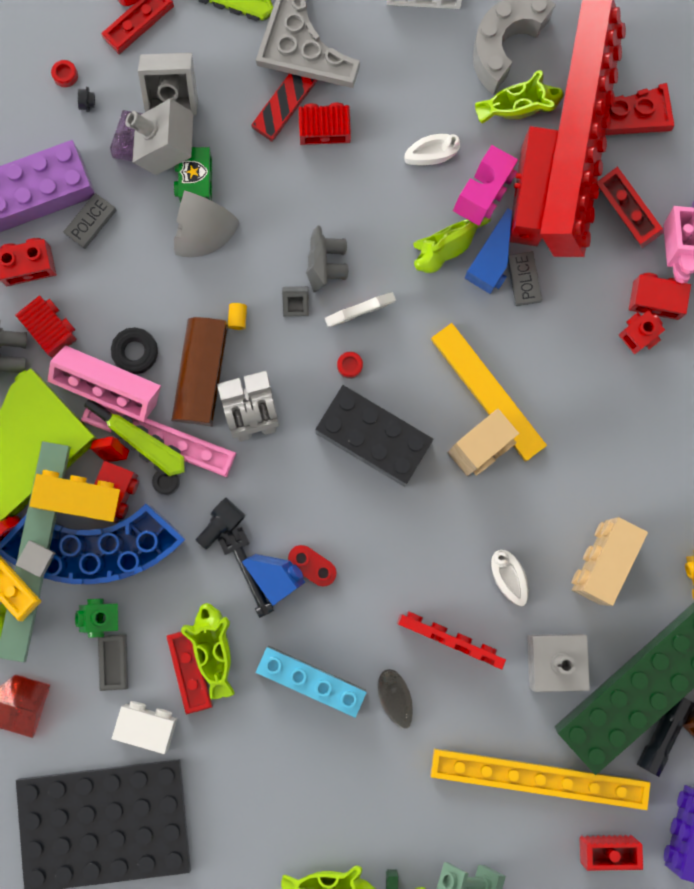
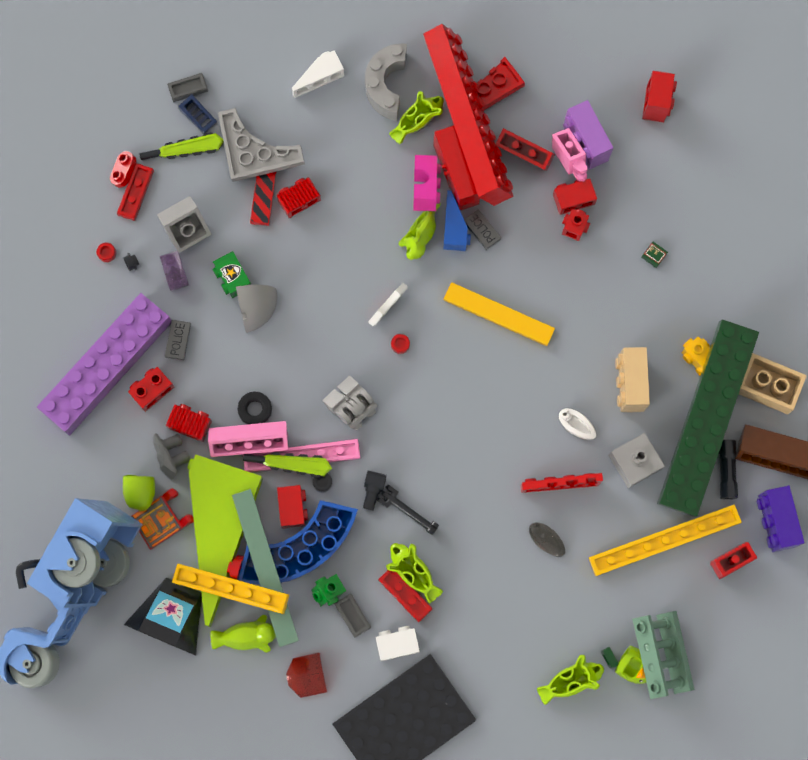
camera: 25 degrees left, 5 degrees down
(35, 558) = (270, 570): light grey tile -> none
(74, 496) = (273, 517): yellow brick -> none
(109, 449) = (275, 479): red plate -> none
(161, 136) = (199, 260): light grey brick -> none
(200, 371) = (305, 399): reddish brown brick -> none
(237, 316) = (310, 351): yellow hinge -> none
(274, 576) = (428, 503): blue slope -> none
(295, 301) = (342, 321): dark grey slope -> none
(311, 681) = (487, 556): medium azure piece -> none
(312, 565) = (447, 484): red plate -> none
(318, 268) = (347, 292): dark grey connector -> none
(373, 435) = (441, 380): black brick -> none
(432, 149) = (377, 177): white arm -> none
(488, 439) = (514, 347): tan brick -> none

